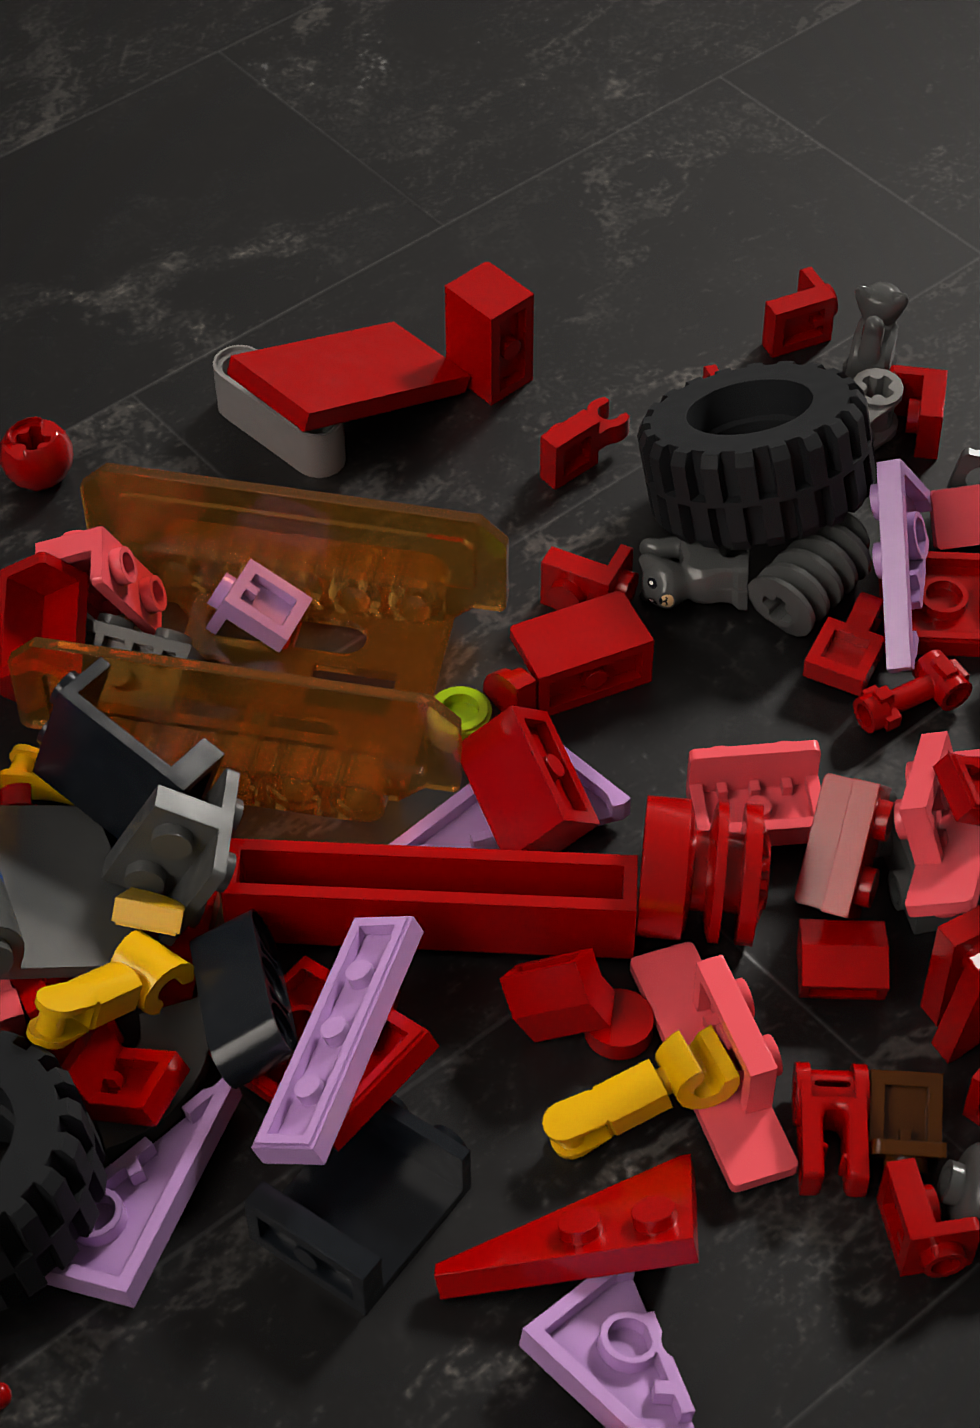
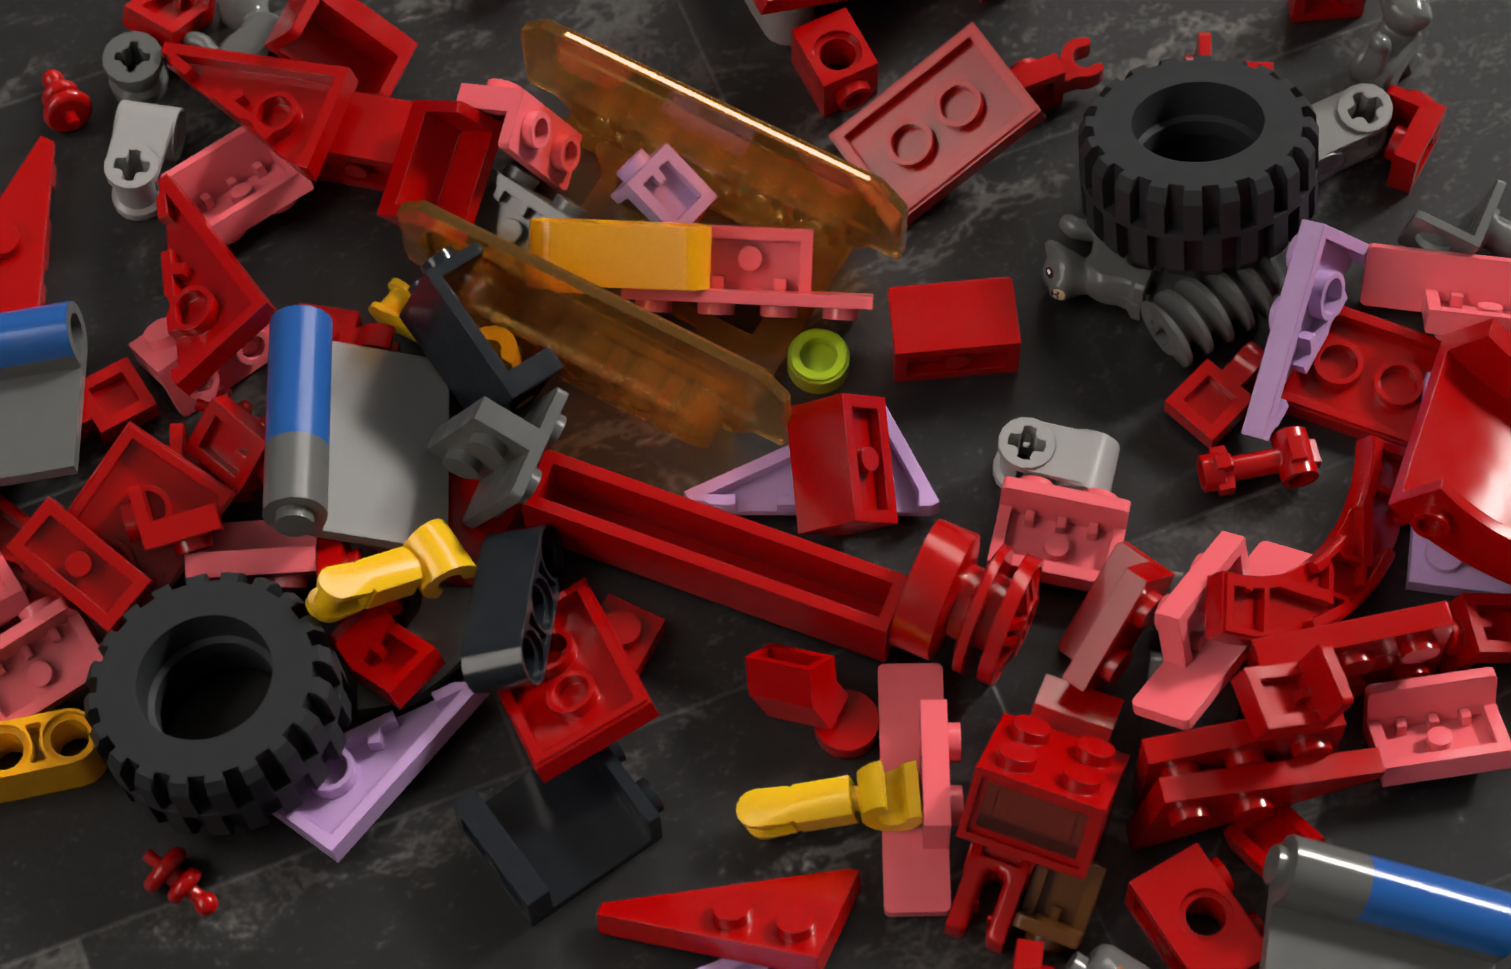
camera: 20 degrees right, 15 degrees up
(148, 911) = (452, 501): yellow tile -> none
(281, 642) = (627, 251): none -> light orange beam
(337, 1041) = (576, 681): lavender tile -> none
(380, 465) = (830, 42): none -> red brick
(384, 645) = (761, 269): none -> coral bracket
(510, 688) = (874, 354): red tile -> none
(513, 474) = (940, 122): none -> red tile
(575, 579) = (982, 254): red bracket -> none
(718, 724) = (1057, 453): none -> light grey piece
(855, 1017) = (1043, 794): none -> red piece

